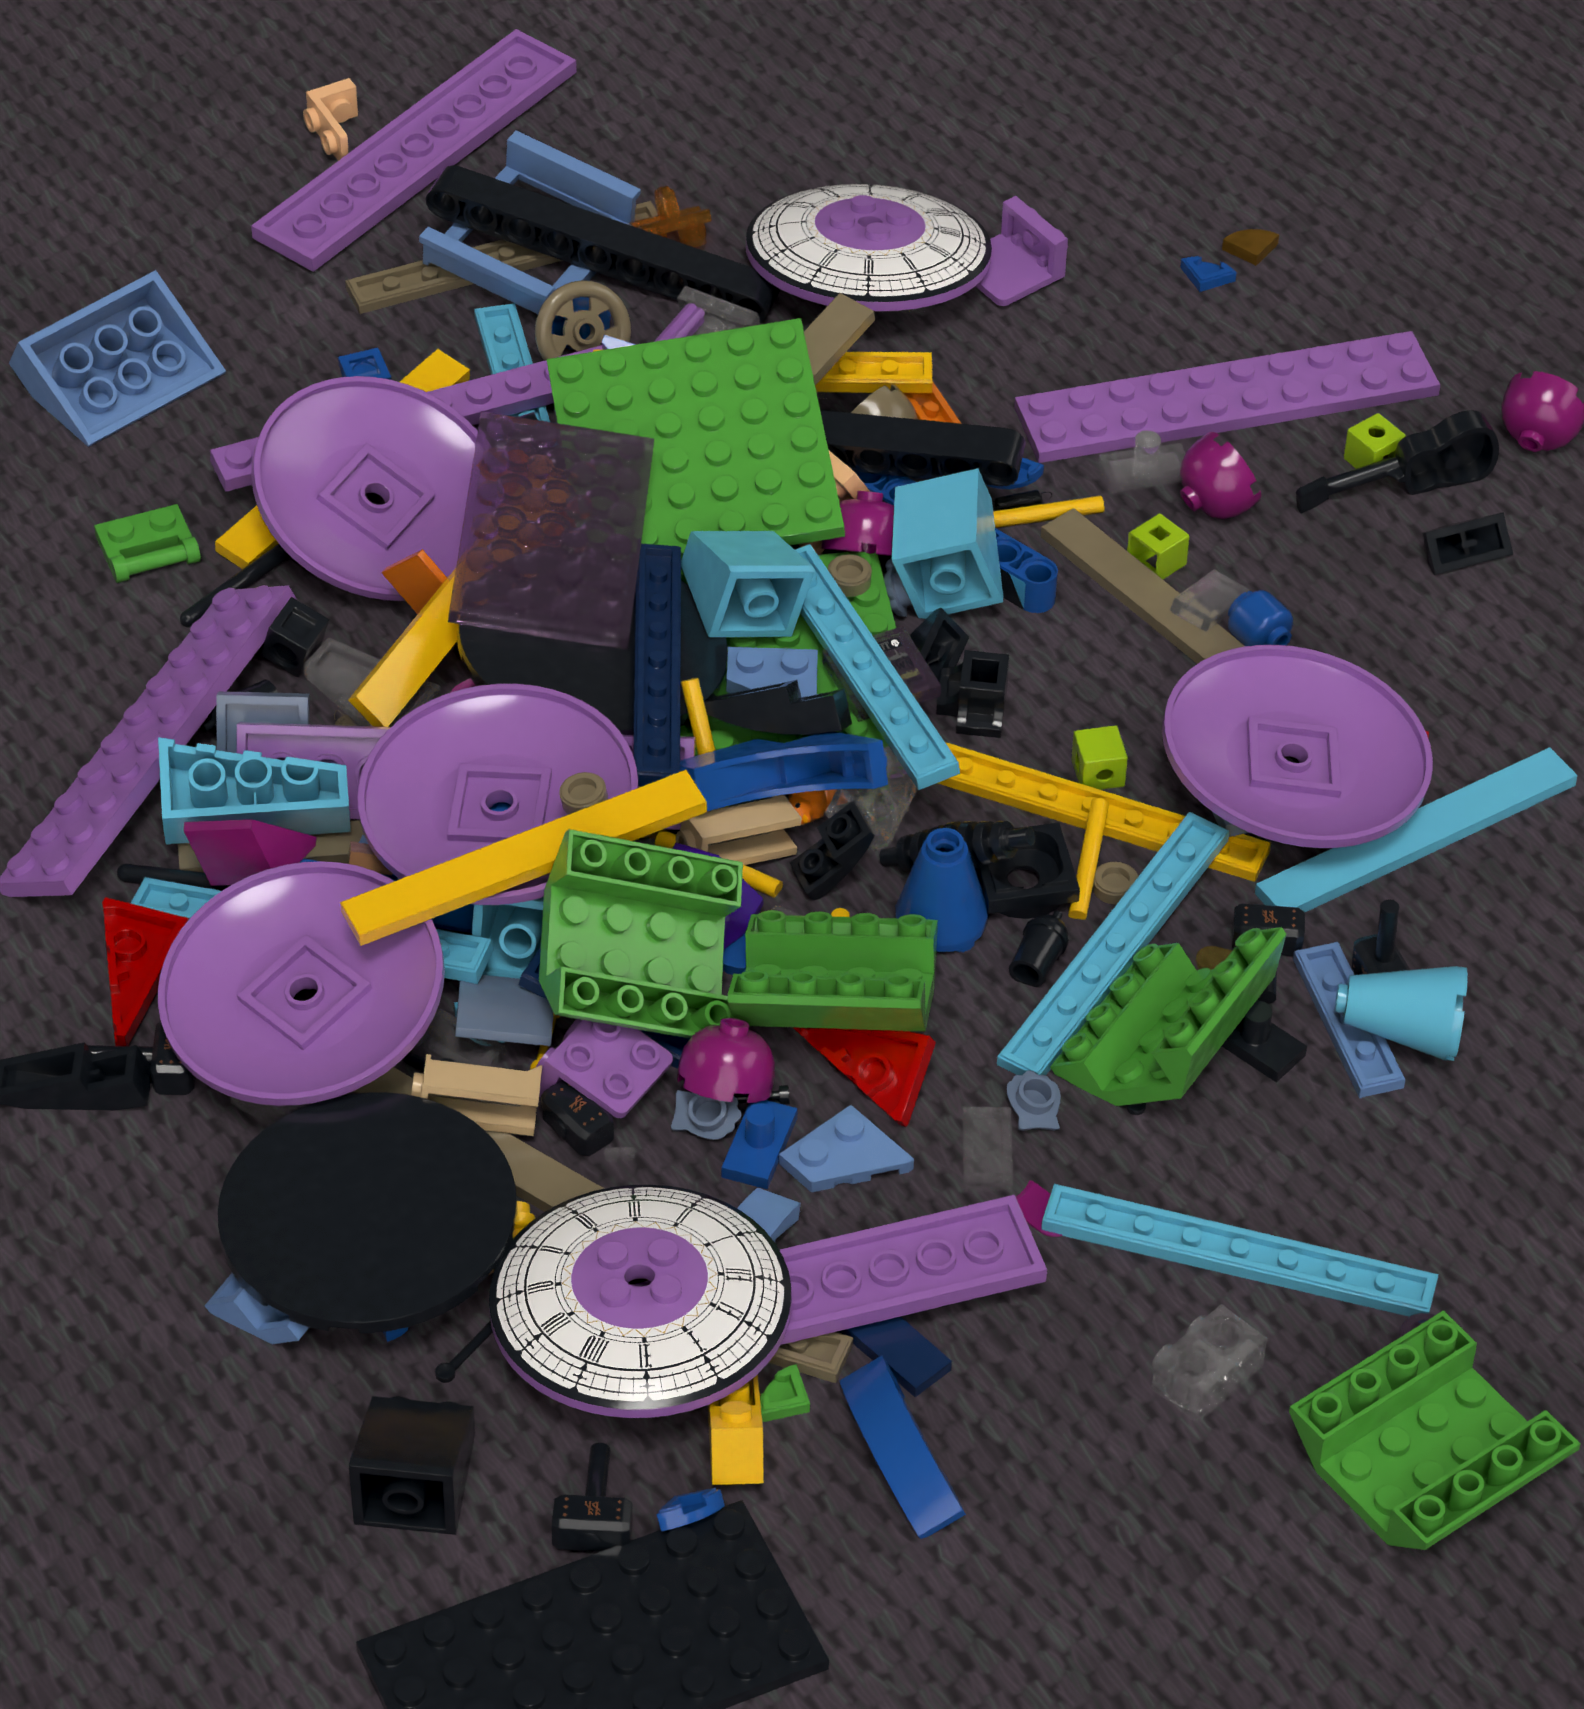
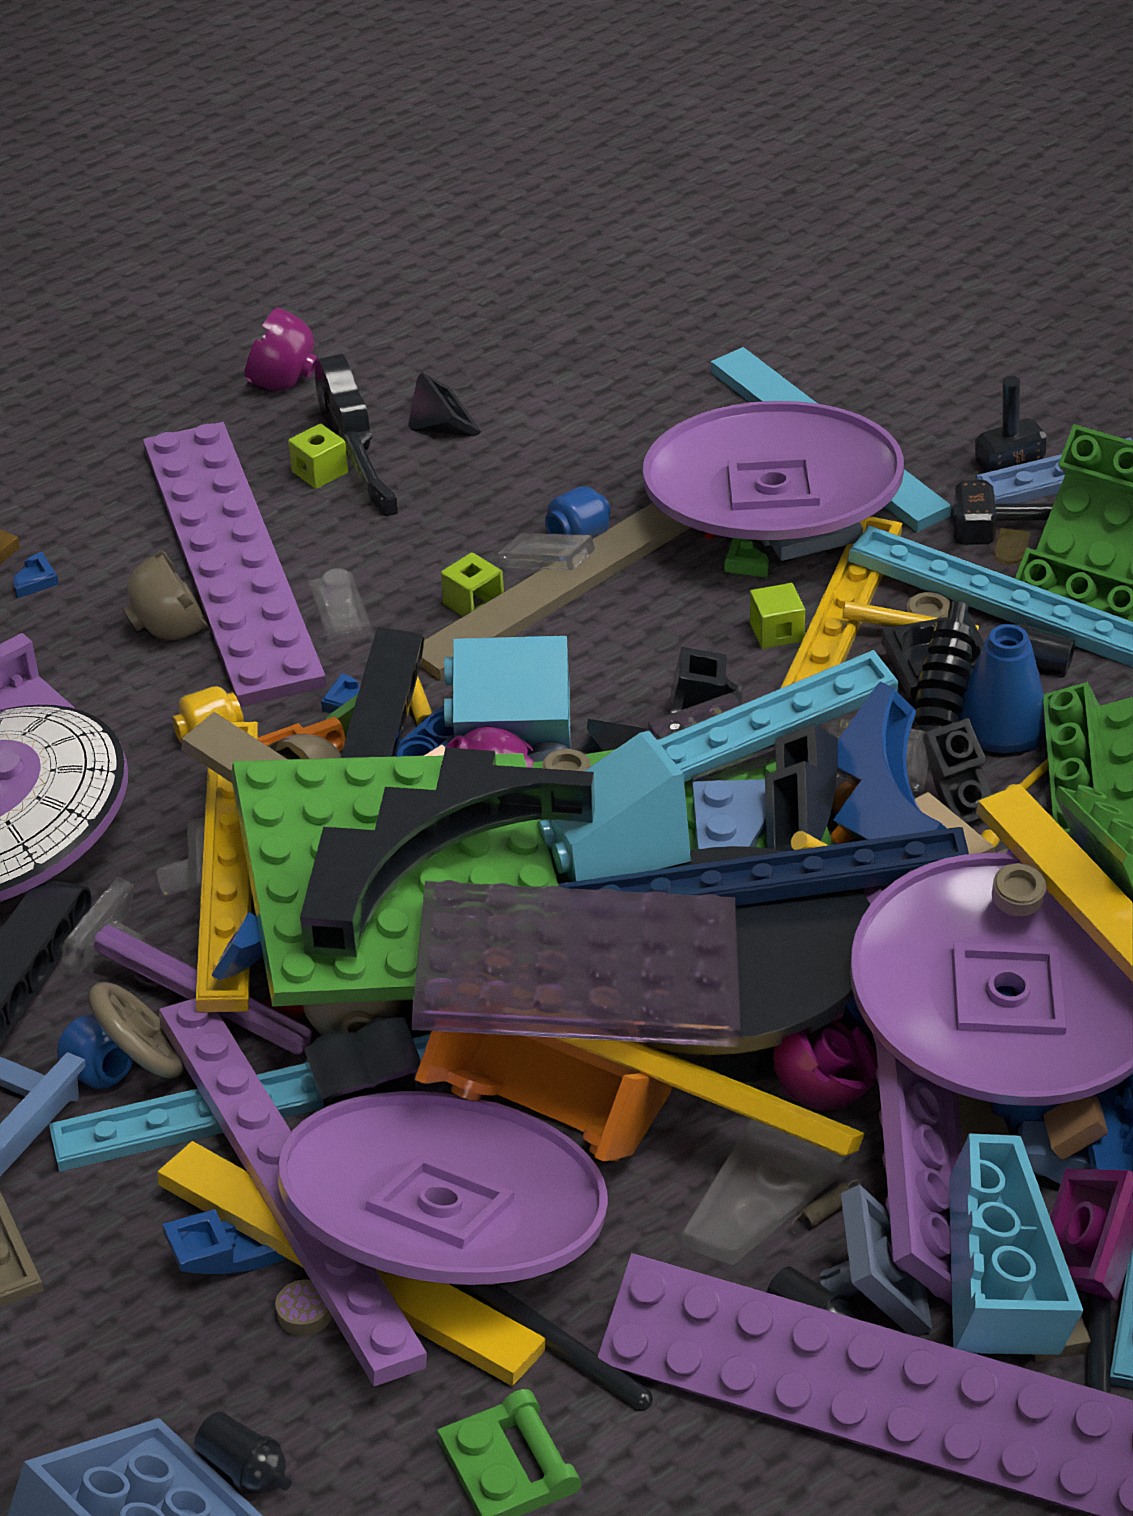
camera: 90 degrees left, 5 degrees down
(176, 405) = (242, 1454): none -> black piece
(294, 636) = (704, 1242): black brick -> none
(658, 388) = (471, 796): none -> black arch
(982, 378) = (199, 705): none -> yellow head
(1144, 334) = (162, 601): none -> dark tan cylinder
(1216, 479) = (378, 542): magenta cylinder -> none
(1408, 1007) = (1070, 393): medium azure cone -> none

